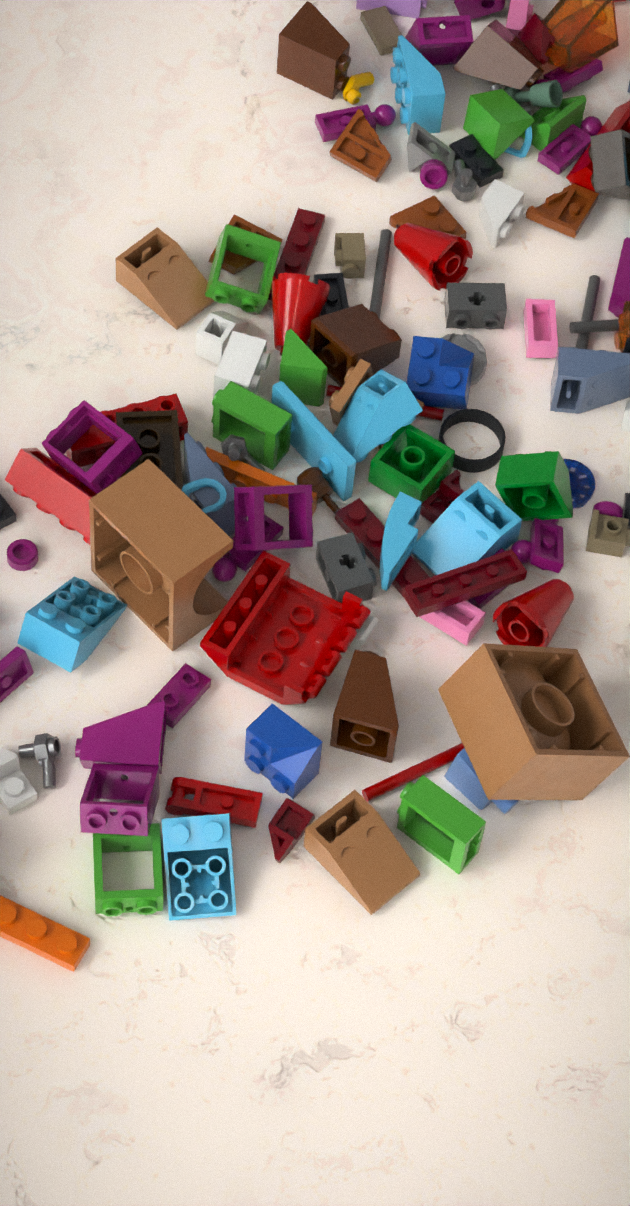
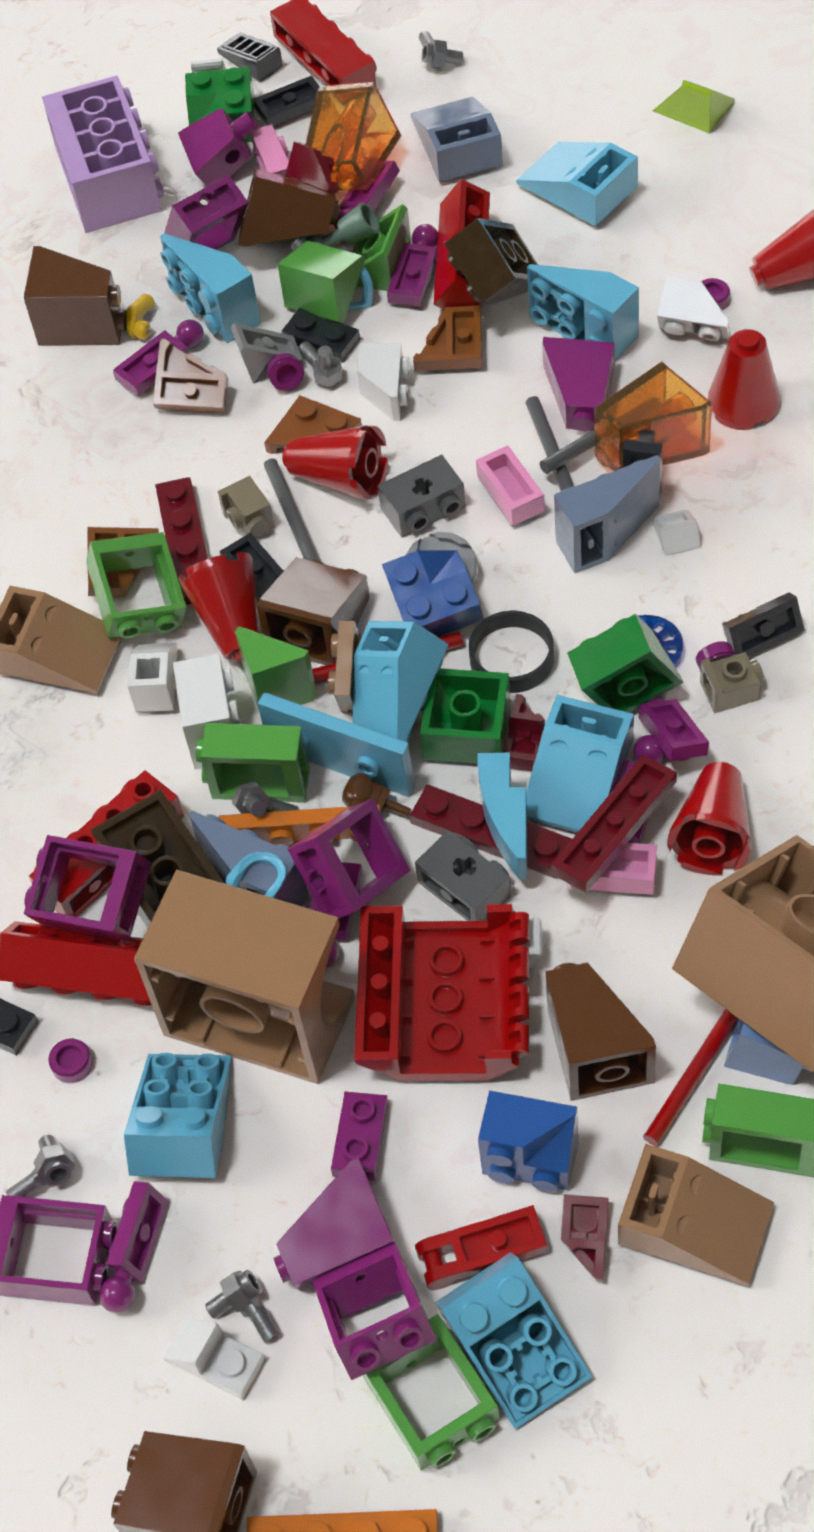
camera: 15 degrees left, 0 degrees up
(381, 29) = (130, 241): dark tan tile -> none

